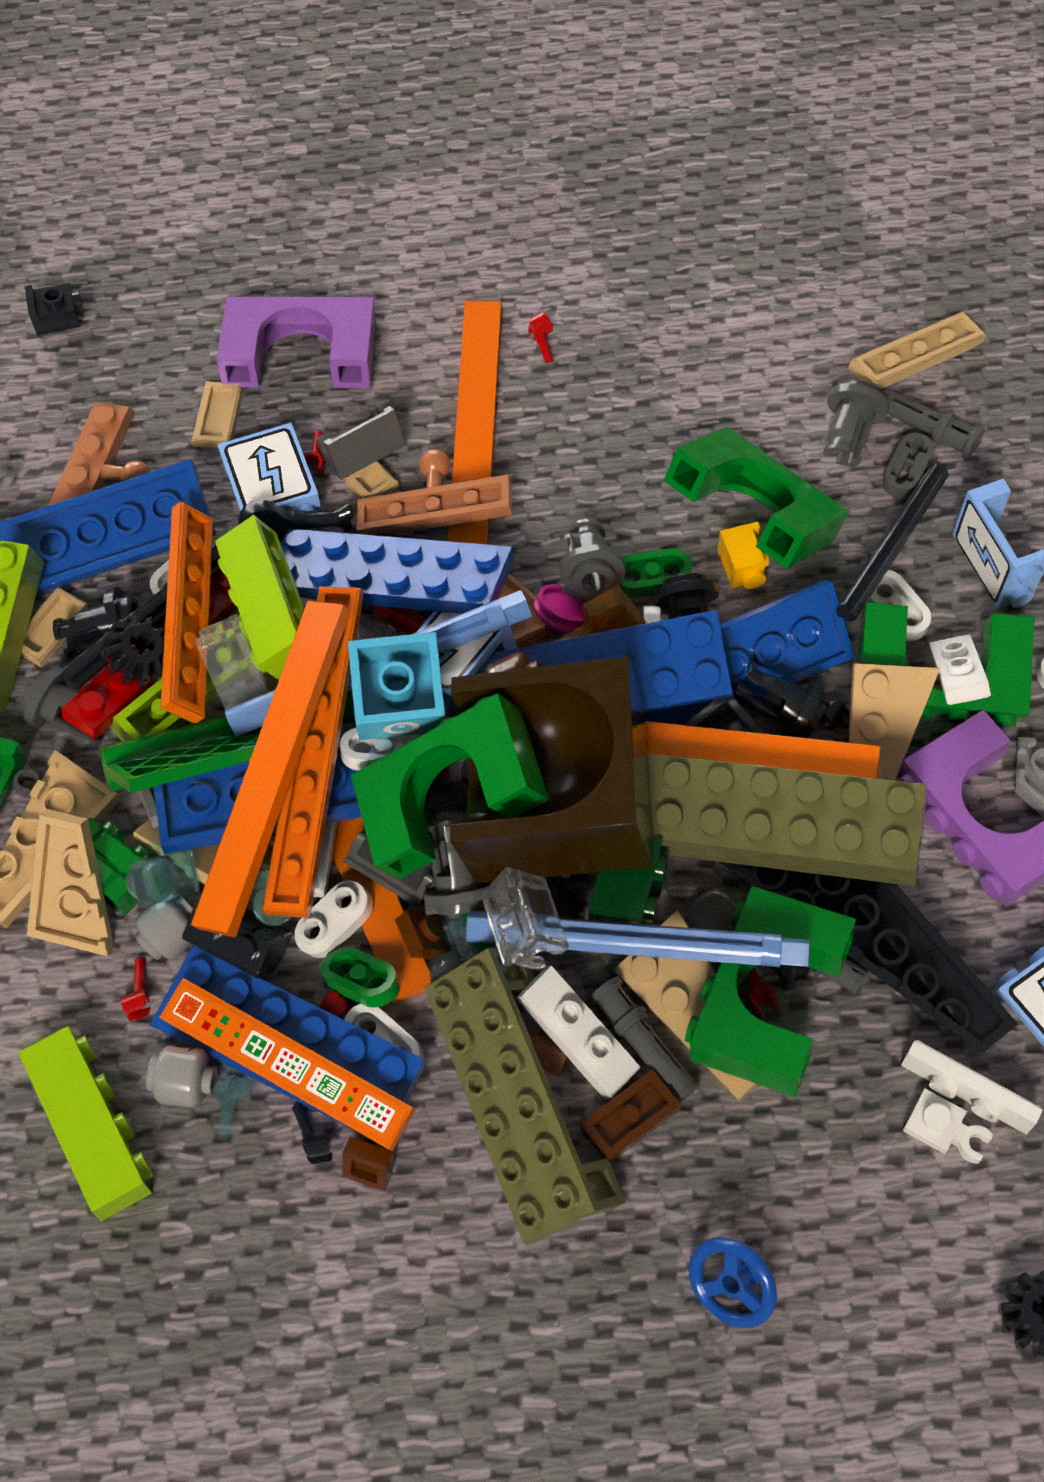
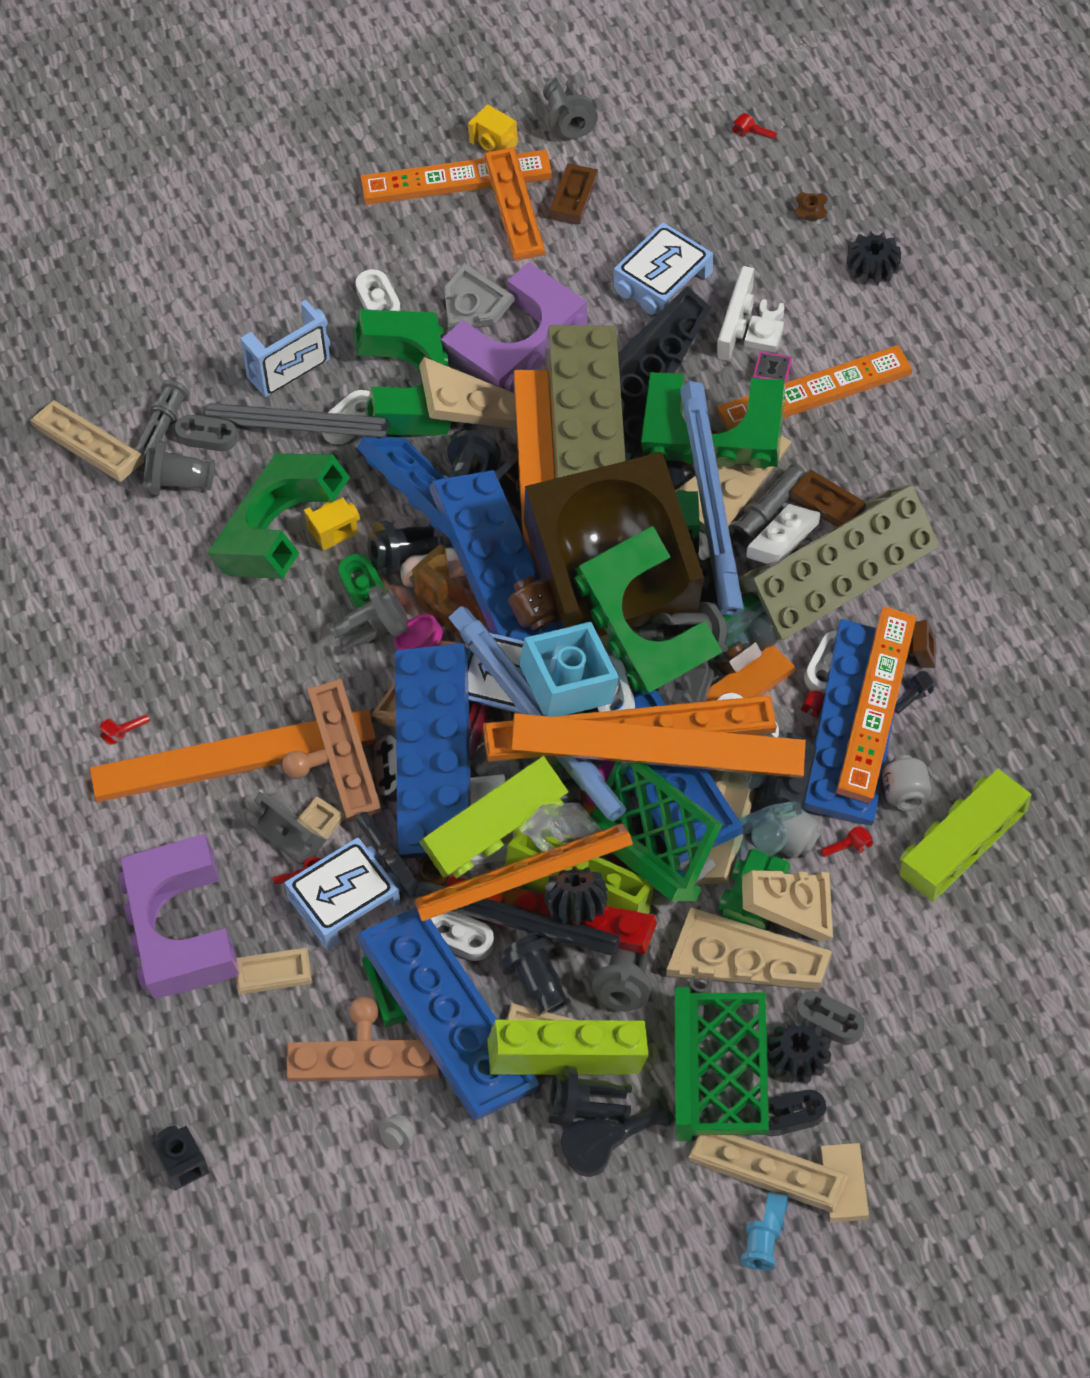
camera: 105 degrees left, 5 degrees down
(227, 1091) = (912, 750): clear light blue hand -> none
(369, 978) = (790, 687): green plate -> none
(523, 918) = (728, 559): clear hinge -> none
(740, 1275) = (917, 415): blue piece -> none
(827, 1181) = (829, 384): none -> orange tile
(869, 1113) = (772, 366): none -> tile
(960, 669) = (404, 359): white plate -> none

